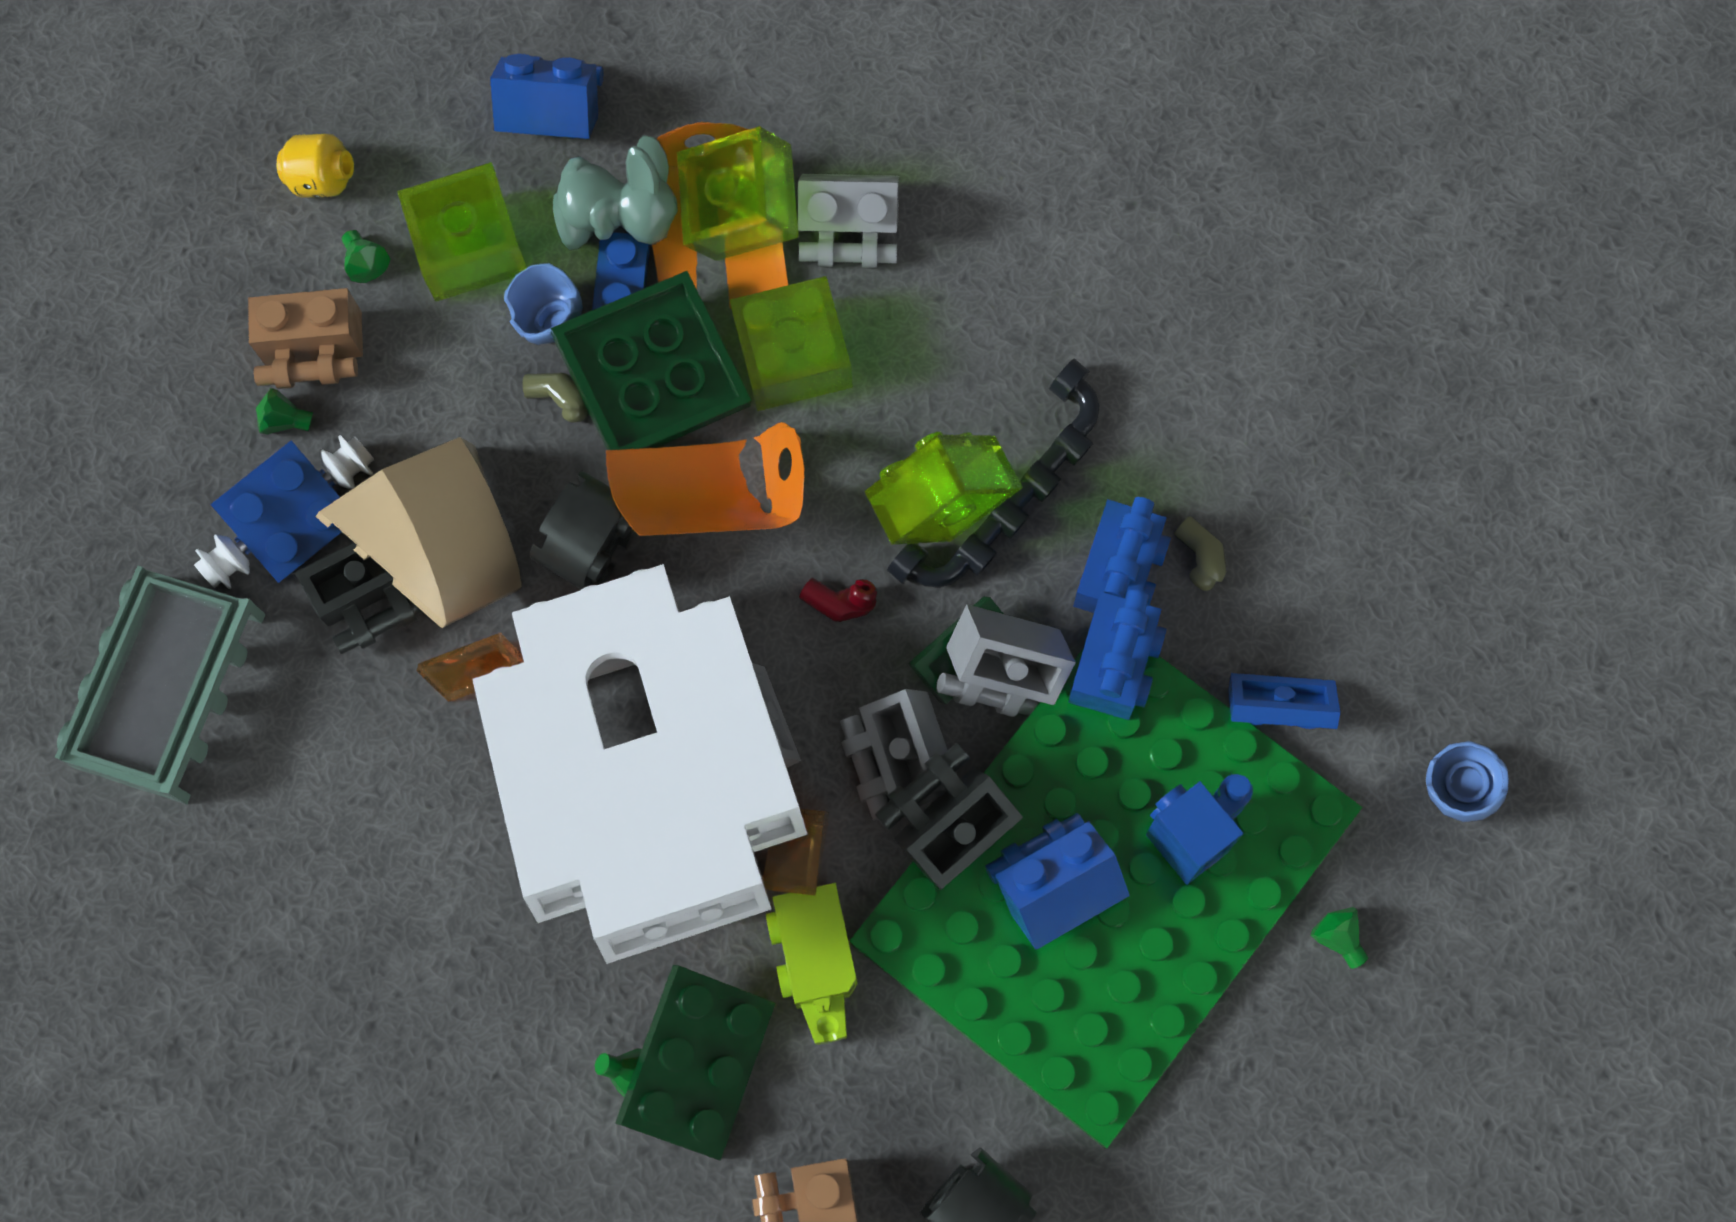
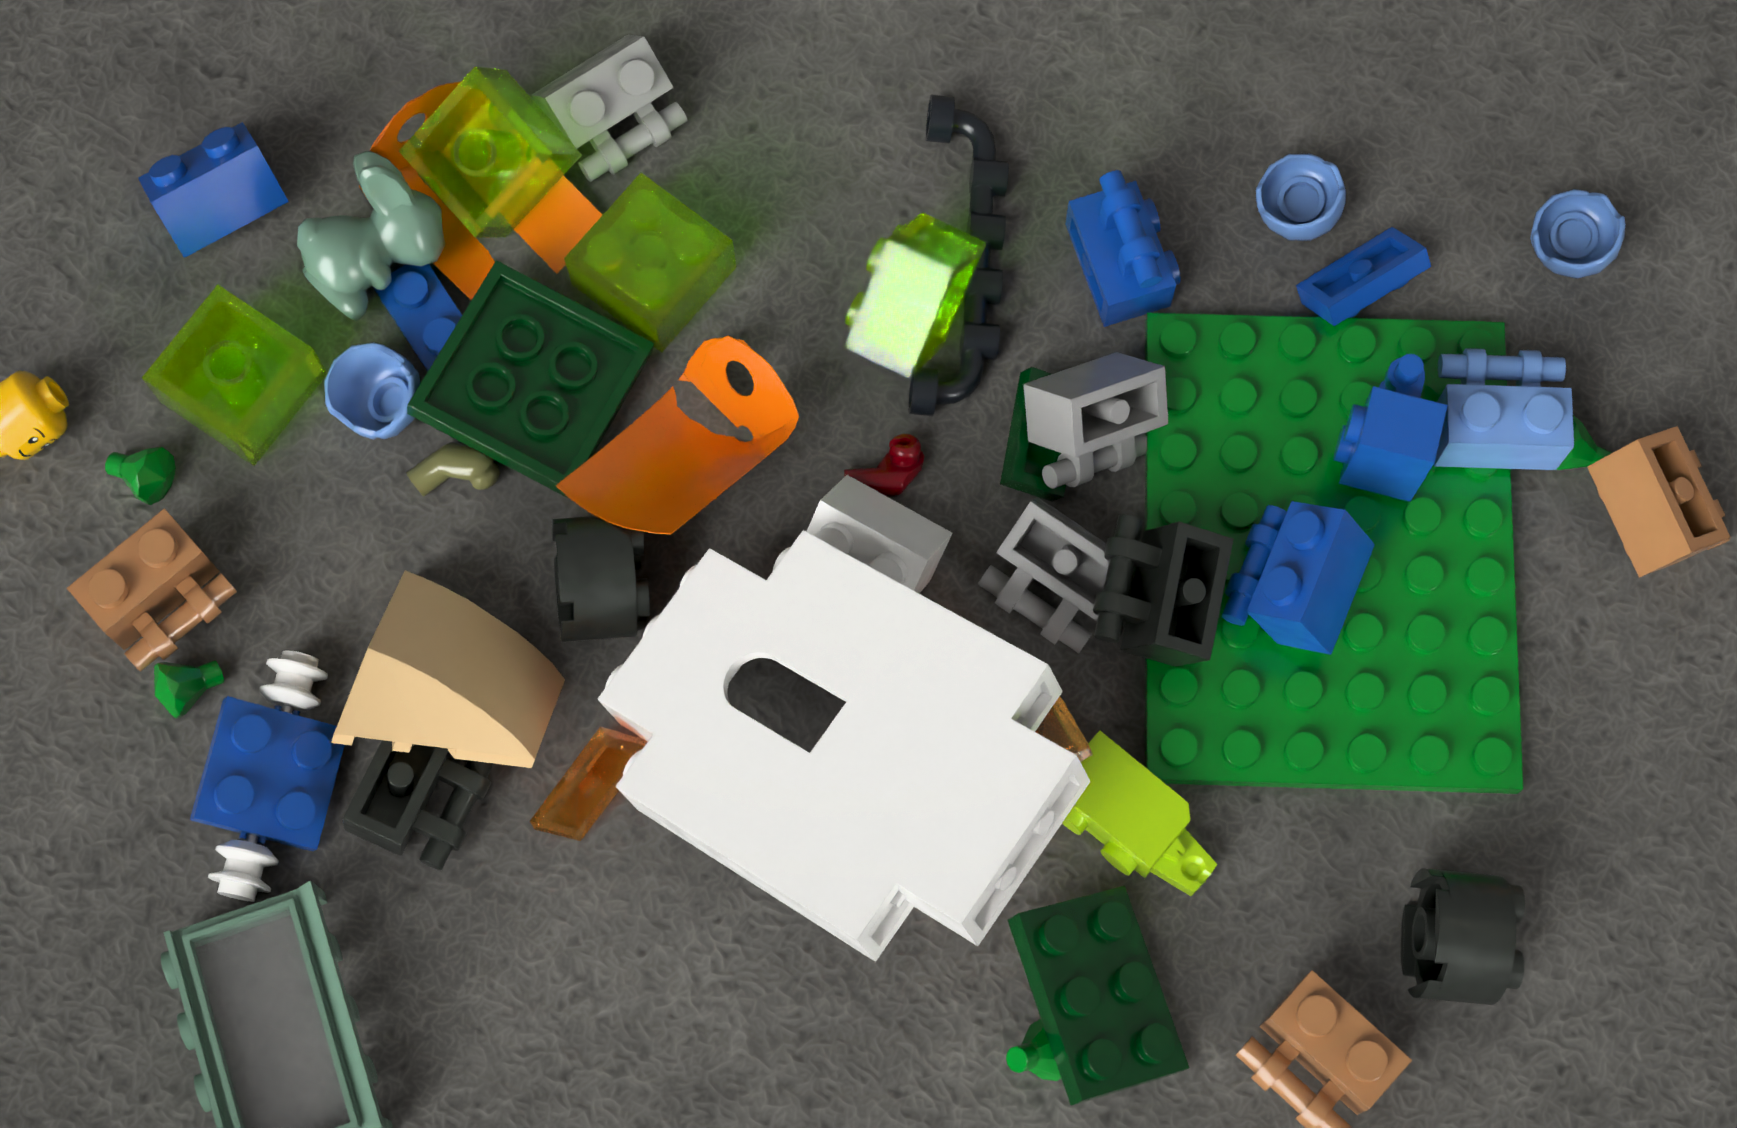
camera: 40 degrees left, 0 degrees up
(789, 641) = (880, 533): none -> white brick
(1116, 655) = (1191, 335): blue brick -> none
(1208, 551) = (1188, 188): olive arm -> none
(1282, 612) = (1301, 197): none -> medium blue hair
(1292, 878) = (1504, 424): none -> medium blue brick
(1372, 1019) = (1659, 501): none -> medium nougat brick

